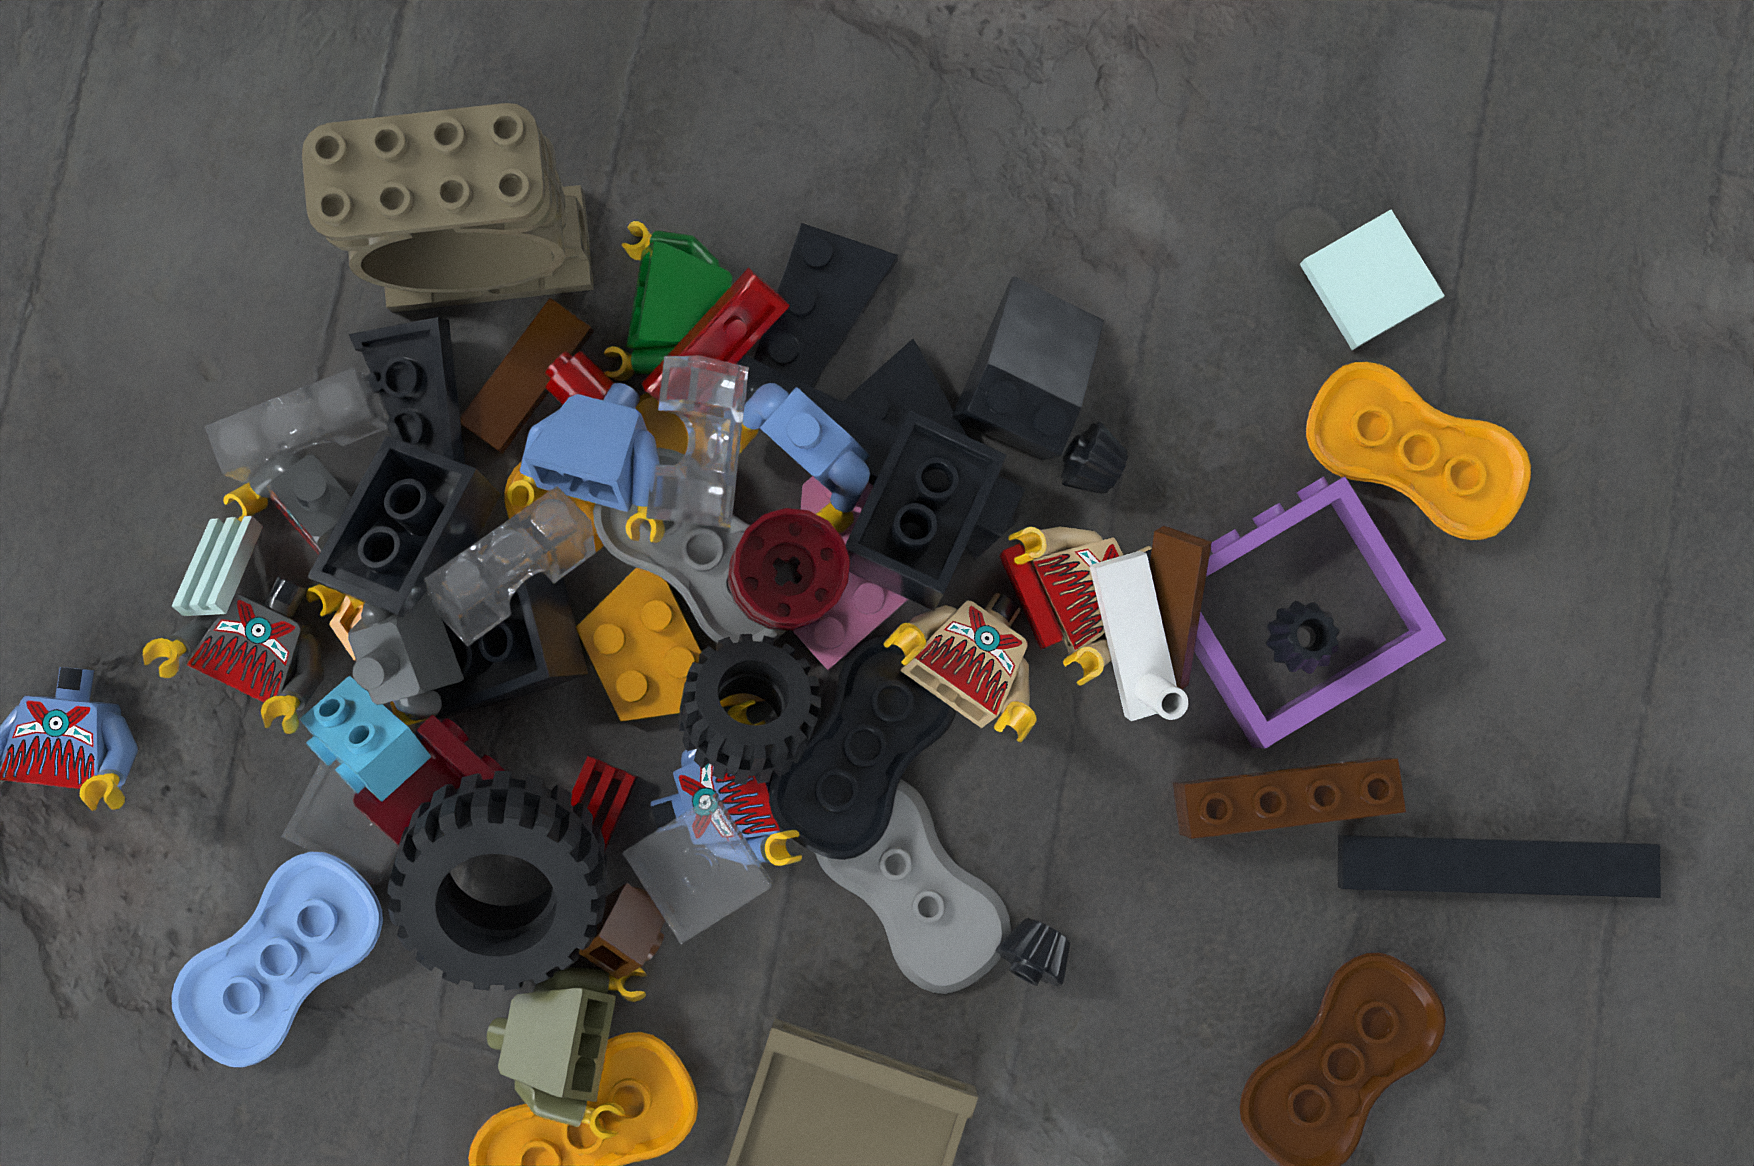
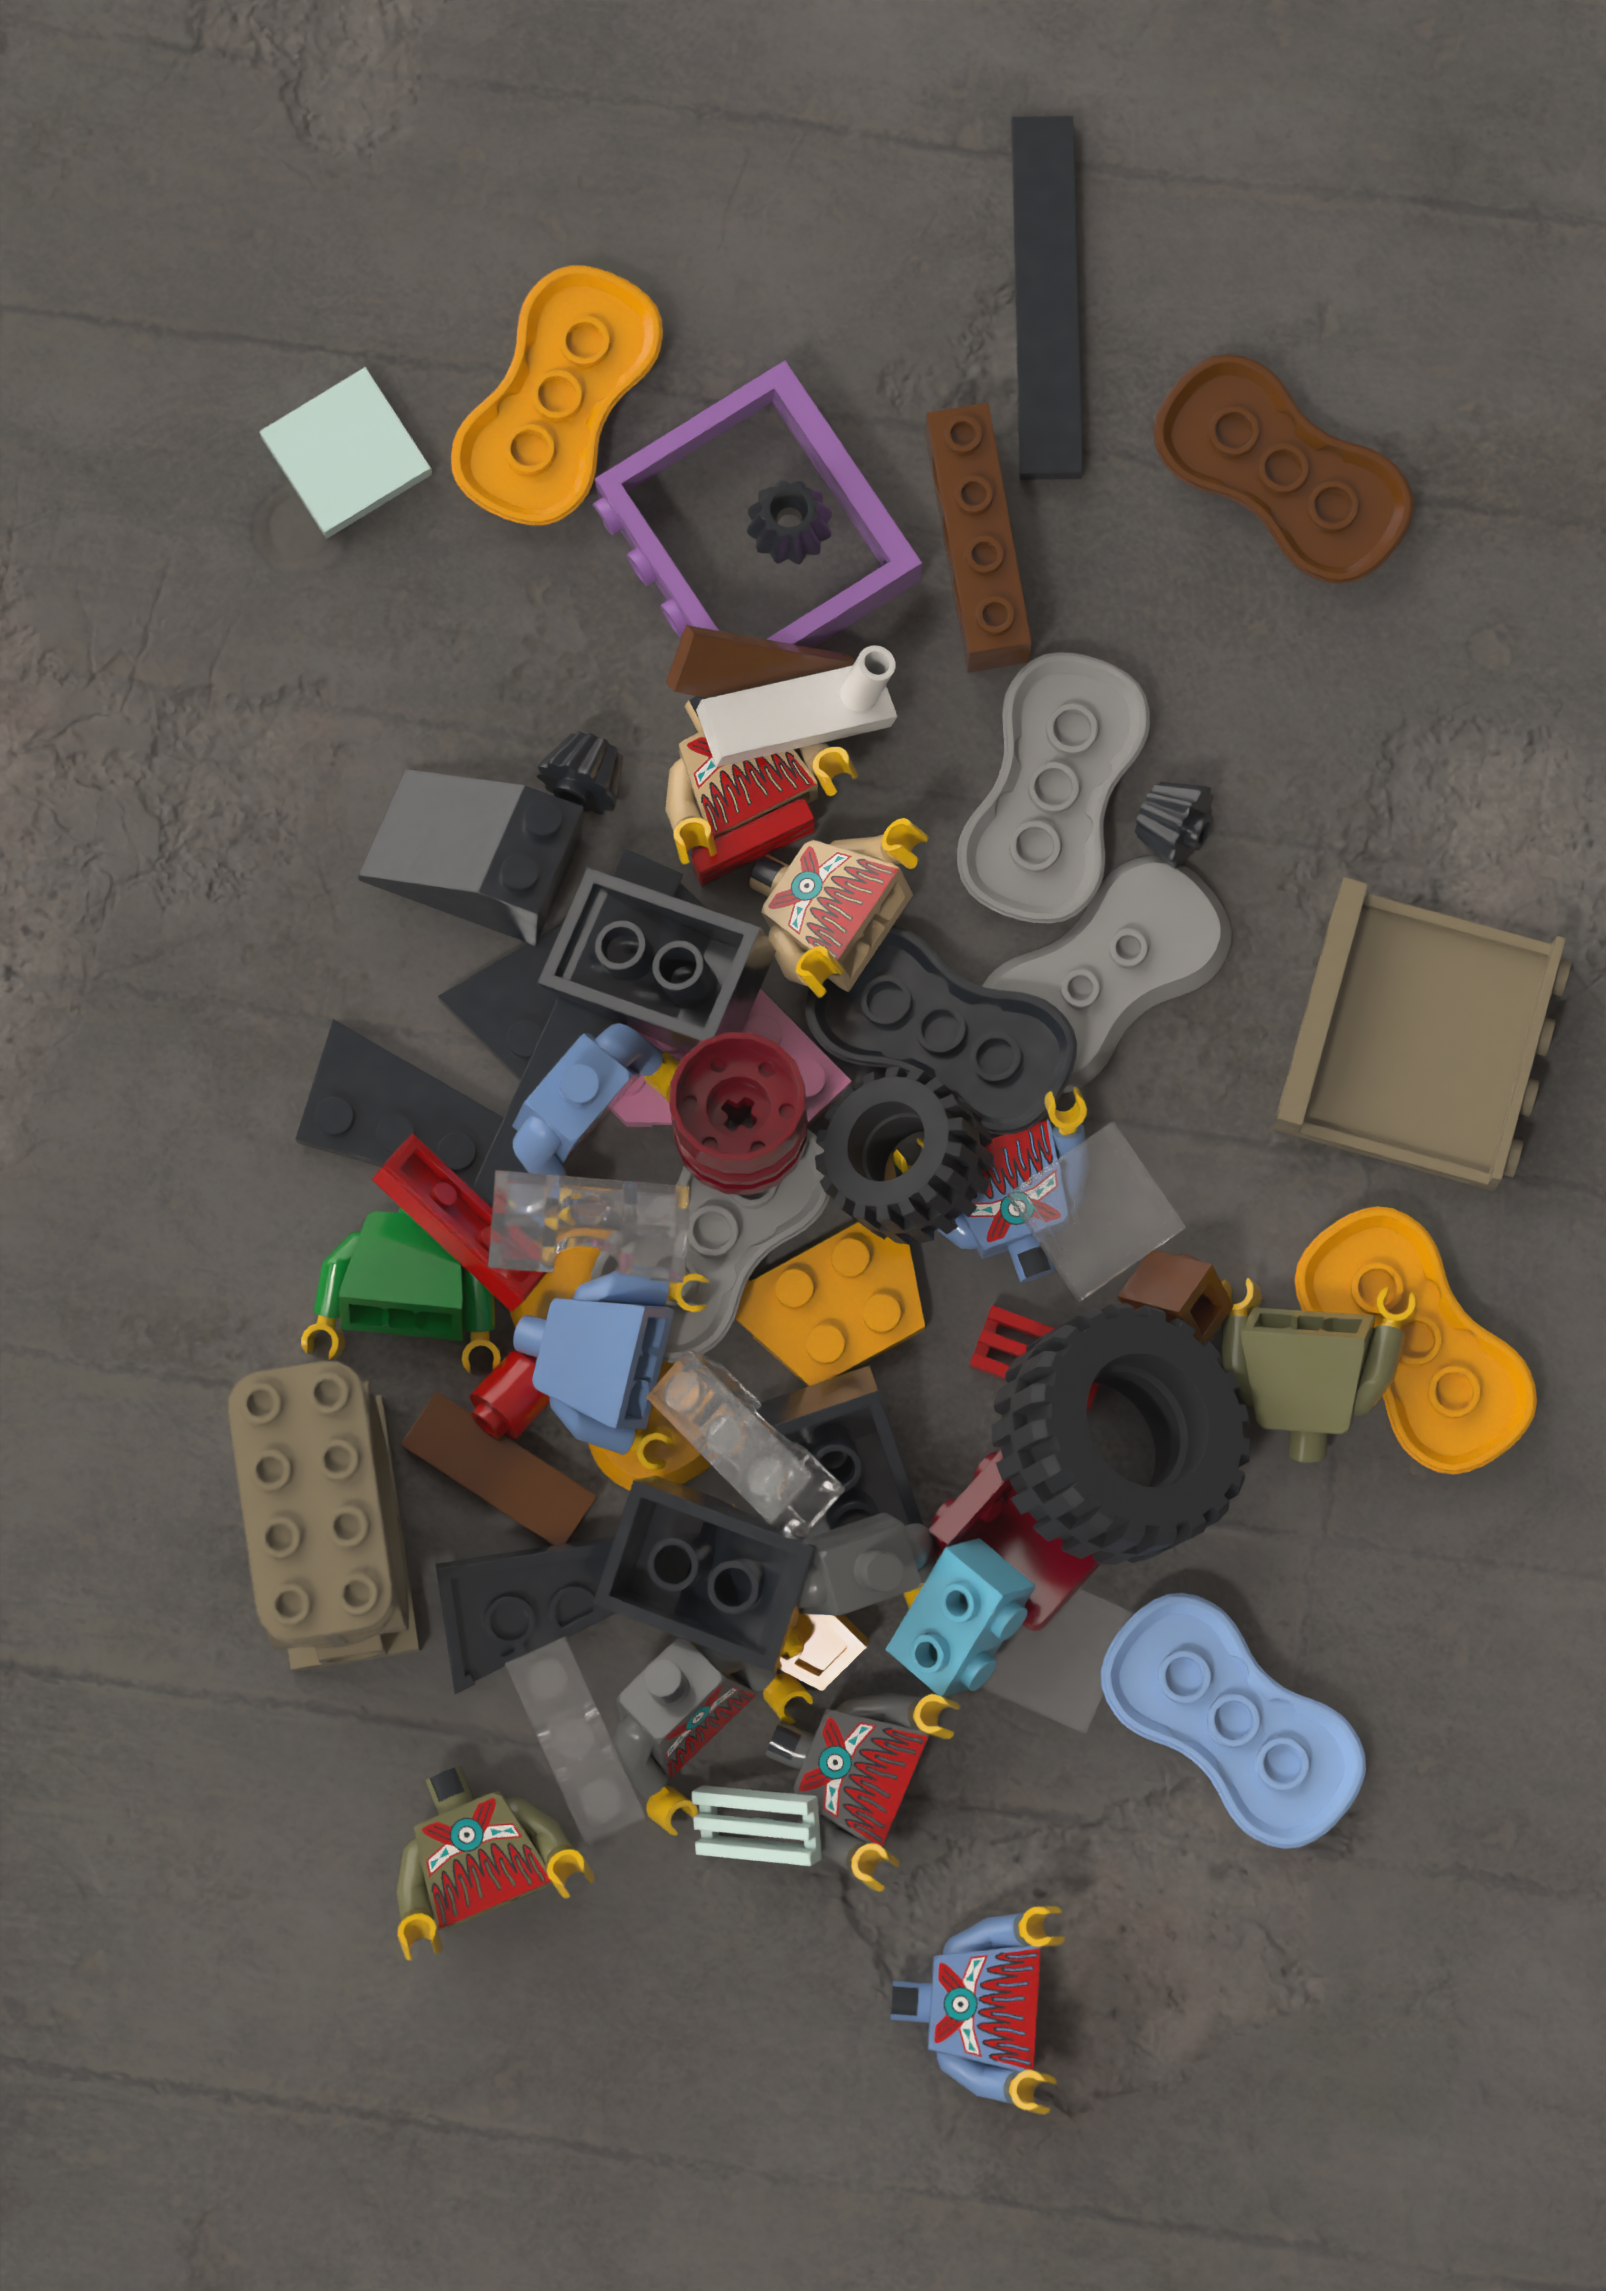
camera: 90 degrees left, 5 degrees down
(210, 344) = (477, 1859): none -> torso
(1030, 837) = (1039, 832): none -> light grey plate

